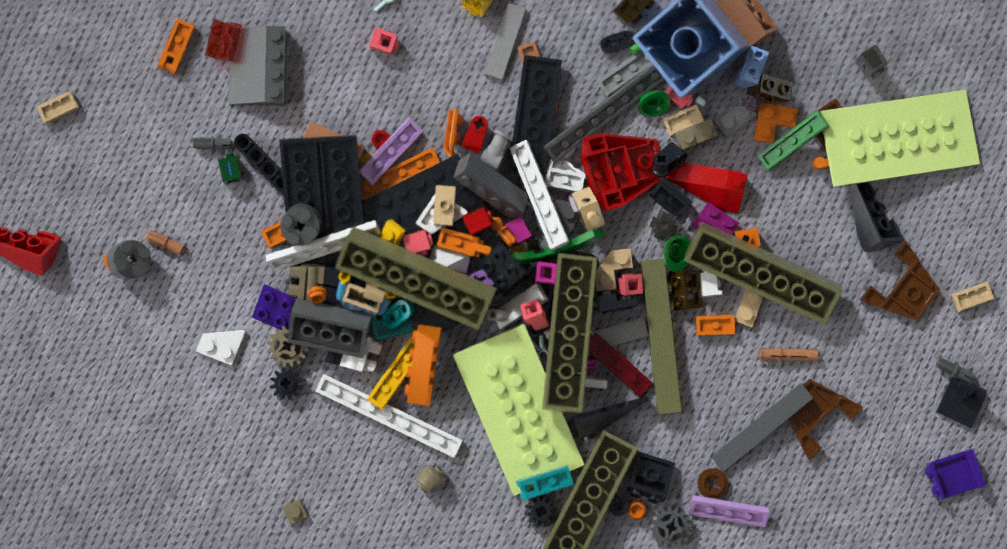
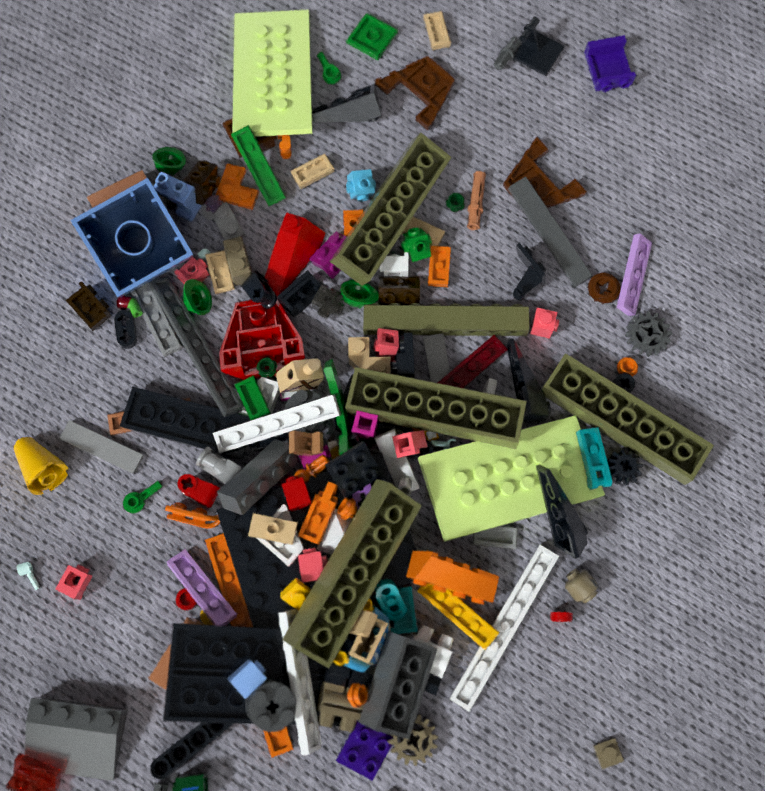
camera: 80 degrees left, 10 degrees down
(282, 389) = (463, 752): black gear -> none
(320, 202) = (248, 677): none -> light blue brick
(402, 467) = (561, 616): none -> red tile
(459, 80) = (135, 502): none -> green plate
(465, 407) = (497, 537): none -> light grey tile
(469, 266) = (347, 508): none -> orange plate
(479, 461) = (565, 524): none -> black wedge
(525, 223) = (305, 443): none -> medium nougat bracket
(563, 169) = (252, 398): none -> green tile
(592, 173) = (267, 362): none -> dark green plate
(650, 478) = (596, 347): black plate -> none
(668, 428) = (544, 323): none -> coral brick
(713, 414) = (532, 277): none -> black plate
(731, 301) = (417, 243): none -> green brick
(783, 339) = (455, 197): none -> dark green plate
(792, 53) = (169, 160): none -> green piece
(792, 236) = (360, 185): none -> medium azure brick
(799, 192) = (312, 171): none -> tan plate
(871, 62) = (192, 86): clear smoke brick -> none
(909, 196) = (331, 73): none -> green plate
(958, 232) = (371, 36): none -> green tile

